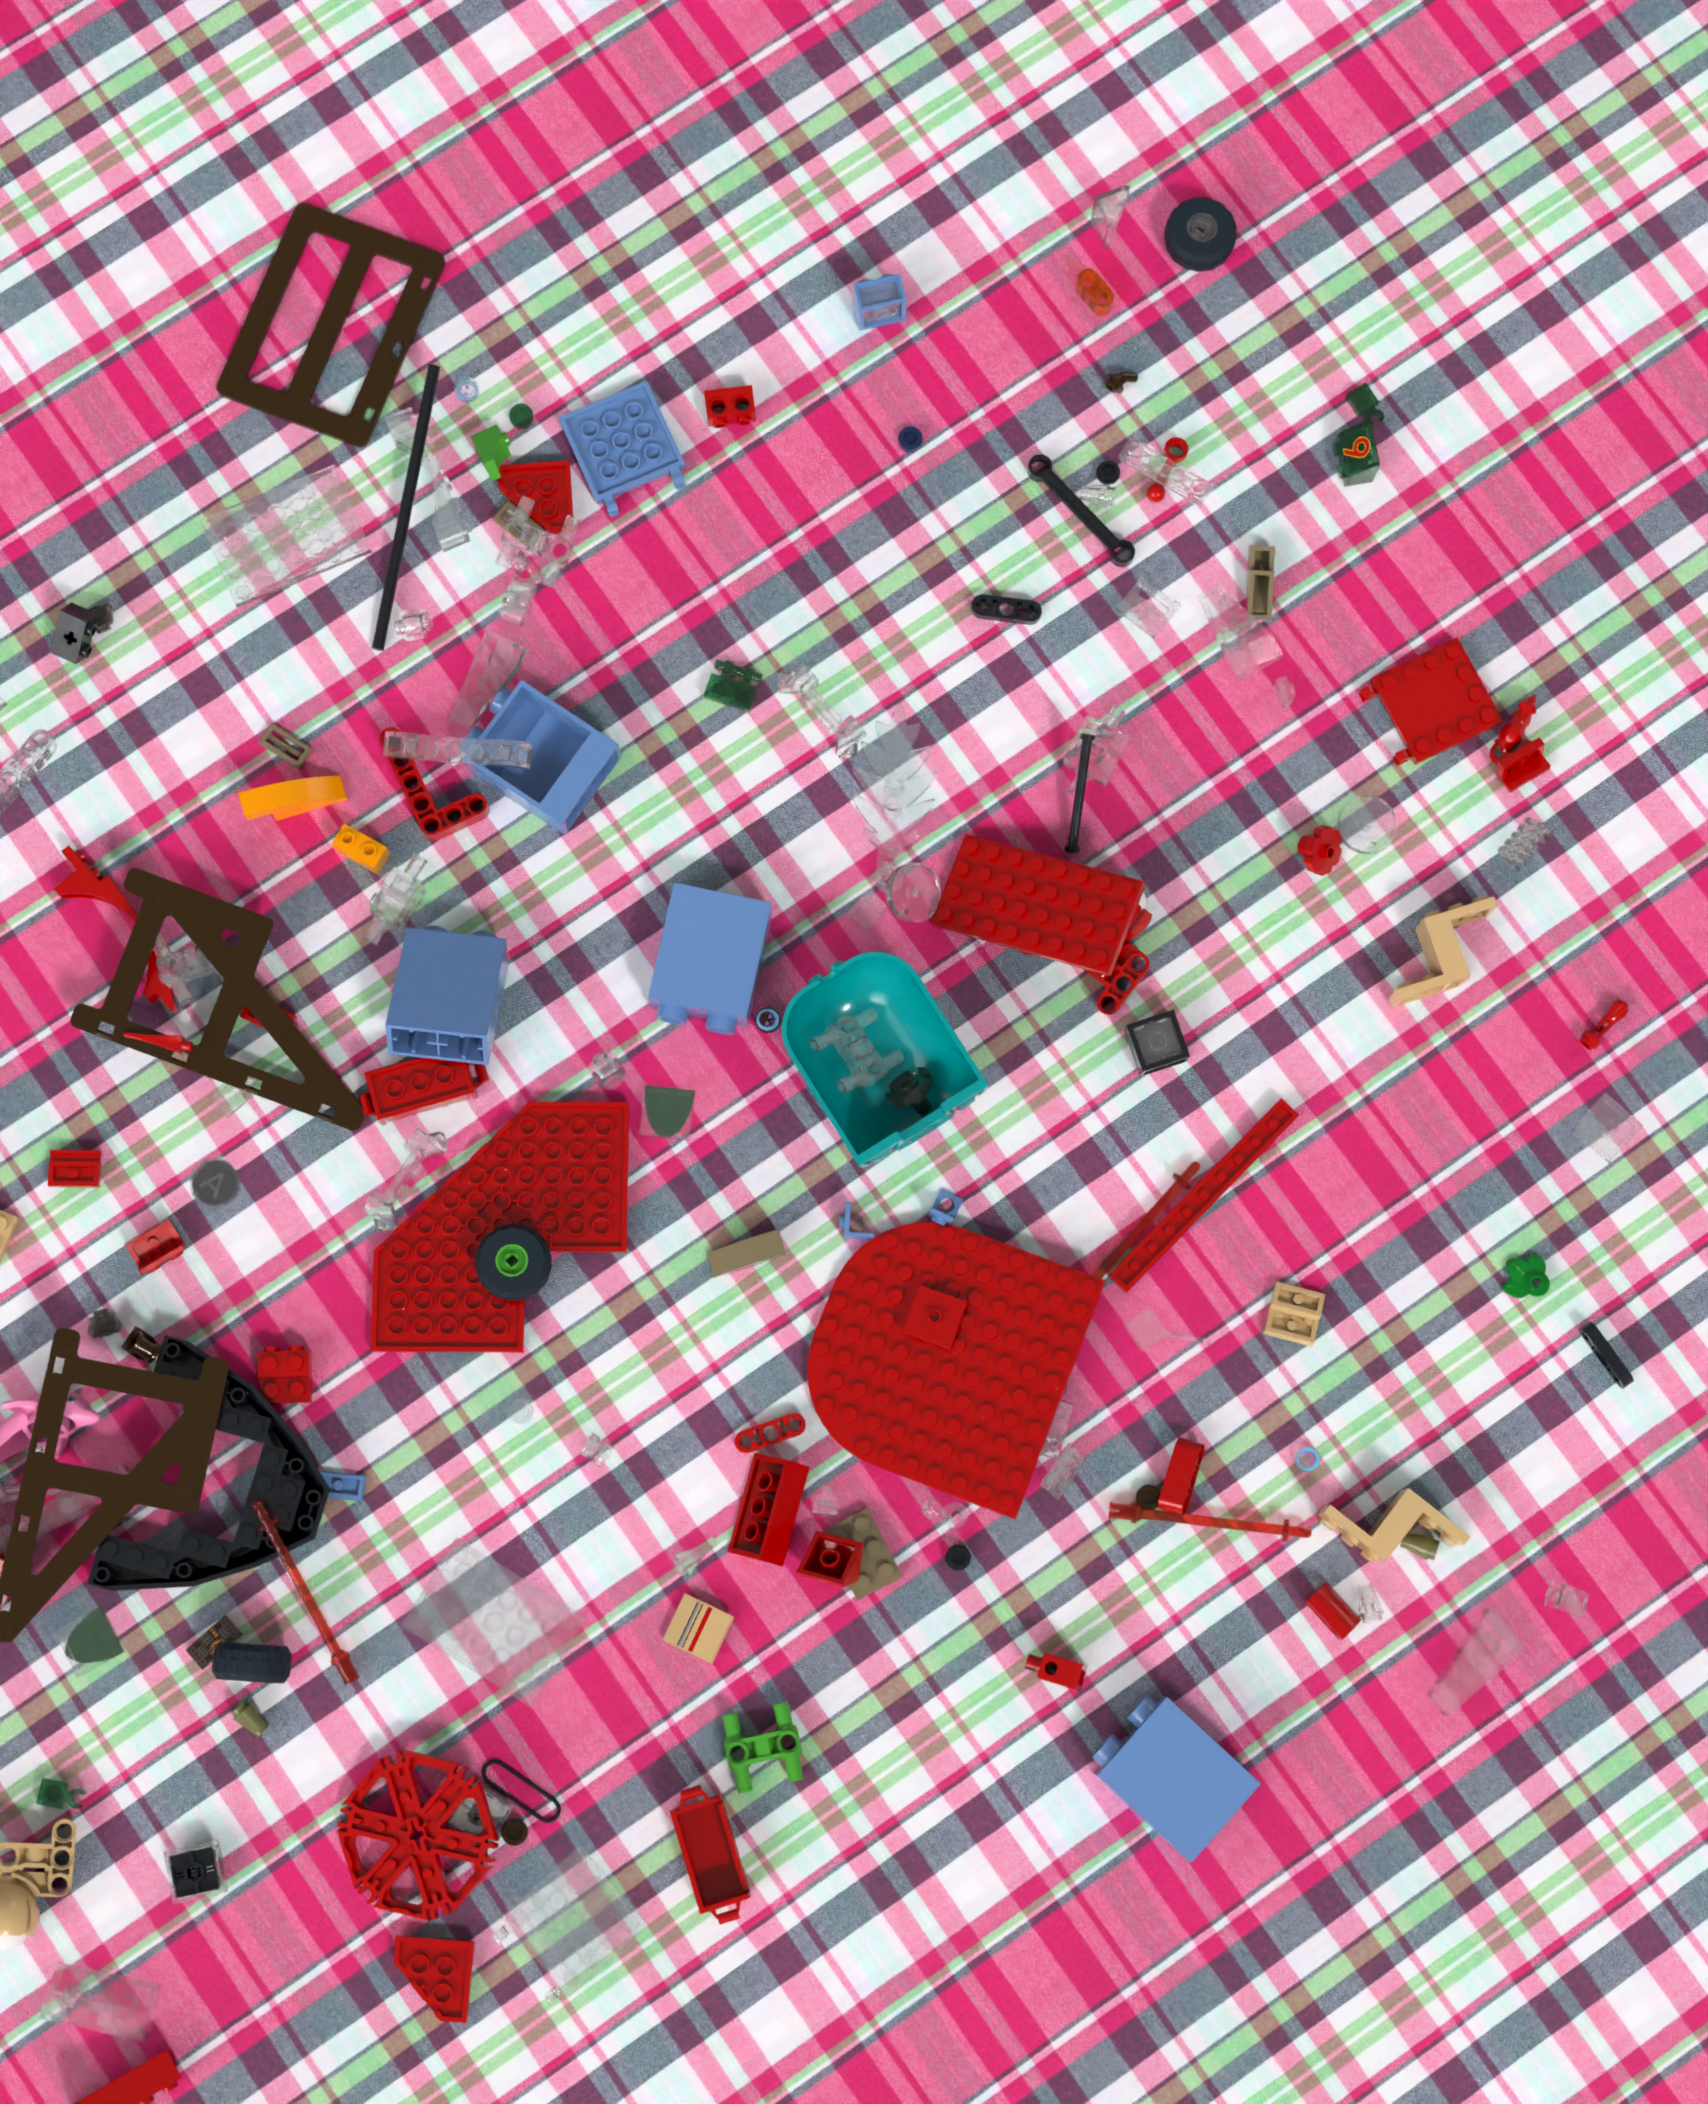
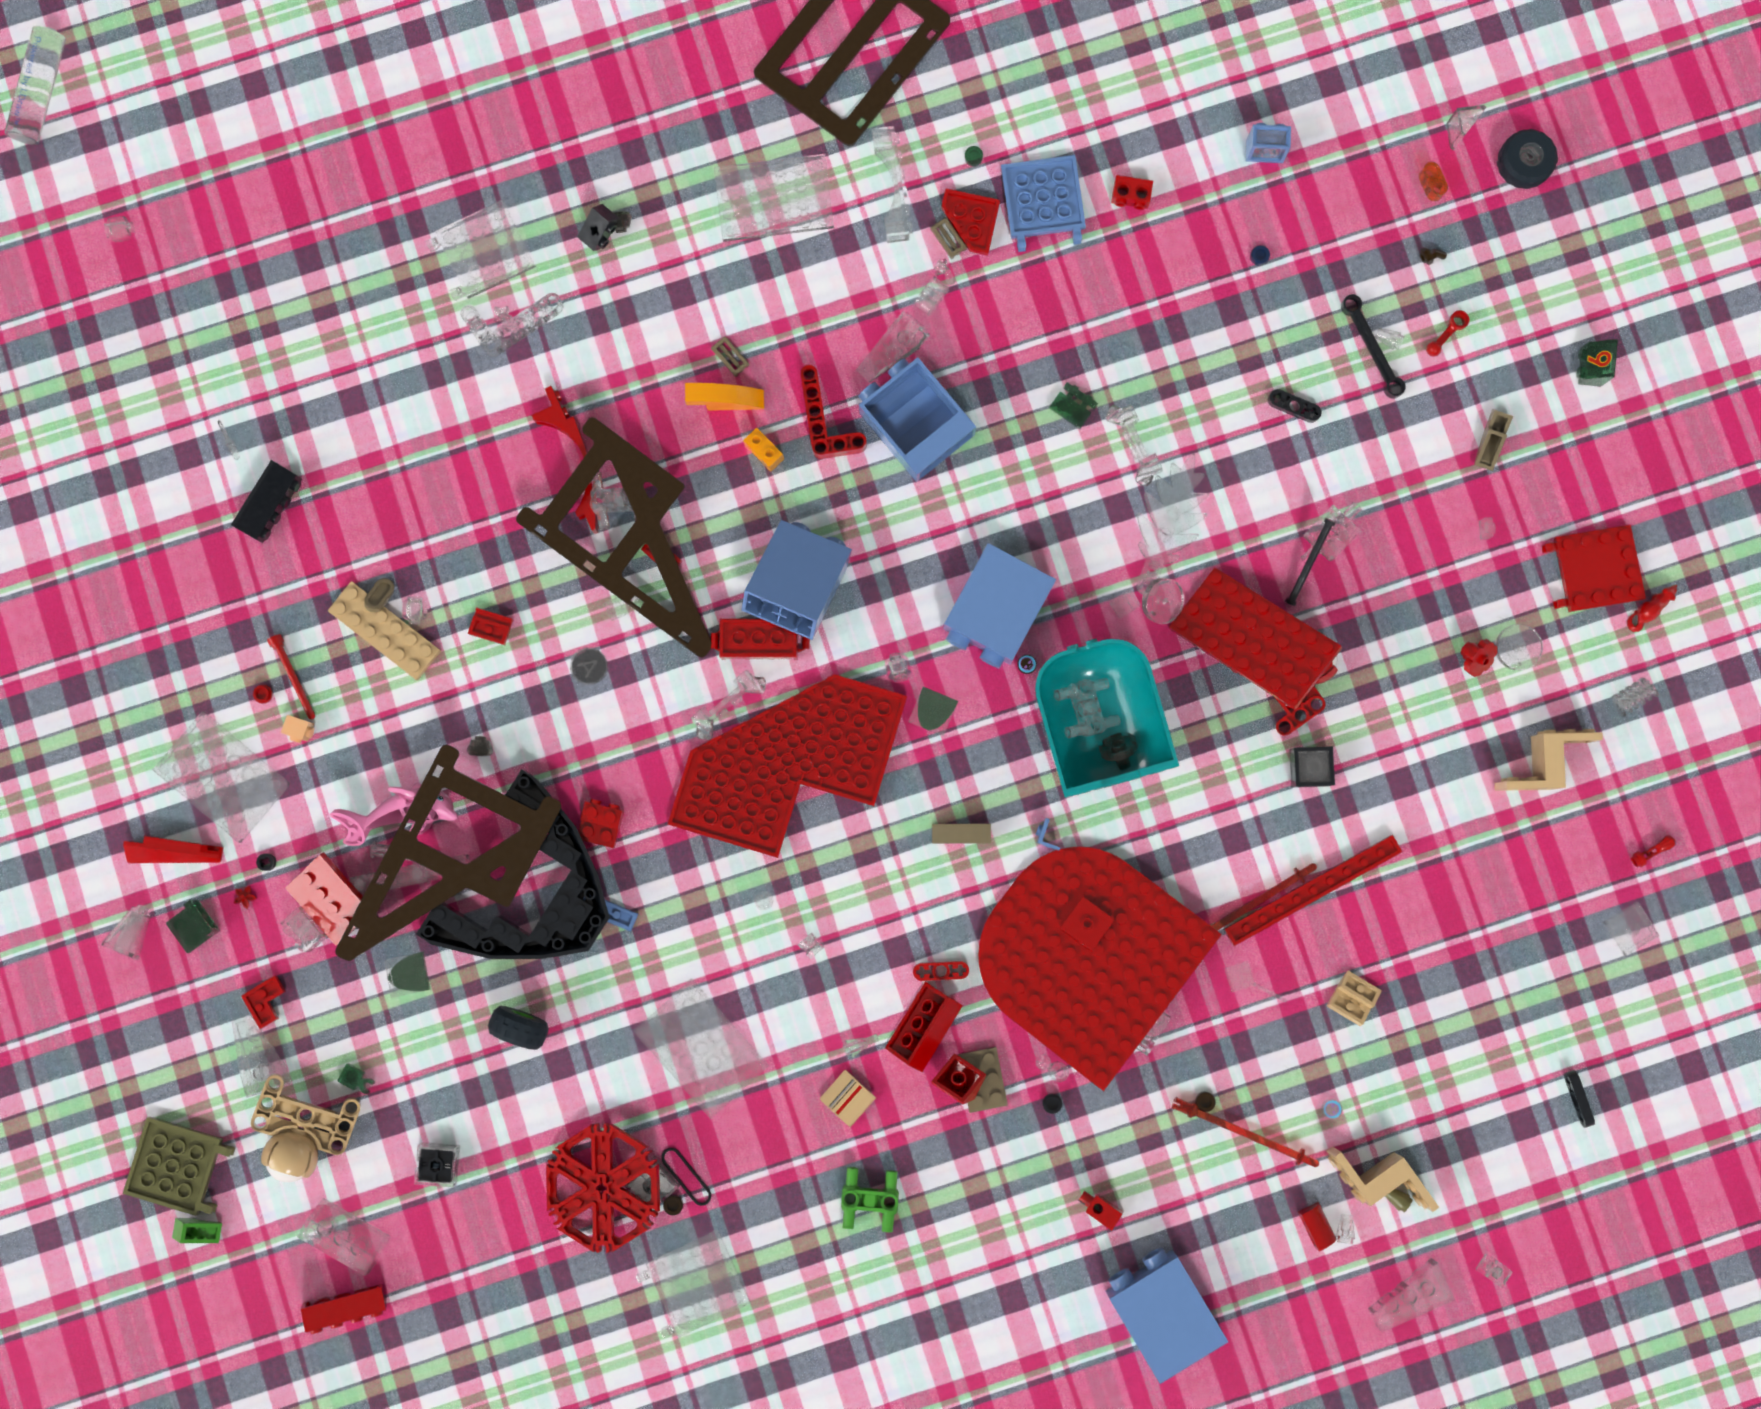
camera: 25 degrees right, 5 degrees up
(141, 1345) = (503, 771): dark brown piece -> none
(156, 1246) = (533, 701): red bracket -> none
(172, 1042) = (585, 555): red piece -> none
(203, 1647) = (502, 997): tile -> none
(249, 1717) = (505, 1064): olive cone -> none
(339, 1657) = (582, 1041): clear red bar -> none
(396, 899) = (779, 495): clear brick -> none
(406, 508) = (869, 200): black piece -> none
(413, 624) = (849, 291): clear head -> none
(438, 1972) = (590, 1290): red plate -> none
(457, 750) = (856, 397): clear arch -> none
(466, 389) = (938, 124): clear tile -> none
(492, 449) = (945, 175): bright green arch -> none
(513, 1262) = (789, 791): black wheel -> none
(537, 541) = (959, 255): clear piece -> none
(710, 1854) = (809, 1266): red container -> none
(825, 1502) = (967, 1034): clear tile -> none
(938, 1215) = (1112, 848): medium blue bracket -> none
(1063, 1471) = (1148, 1064): clear plate -> none
(1108, 472) = (1402, 323): black plate -> none
(1144, 613) = (1397, 438): clear plate -> none
(1166, 471) = (1446, 335): clear plate -> none
(1181, 1476) = (1234, 1094): red beam -> none
(1240, 635) = (1466, 476): clear wedge -> none
(1364, 402) = (1613, 323): clear green plate -> none
(1522, 765) = (1651, 637): red bracket -> none
(1524, 1274) = (1534, 1021): green plate -> none

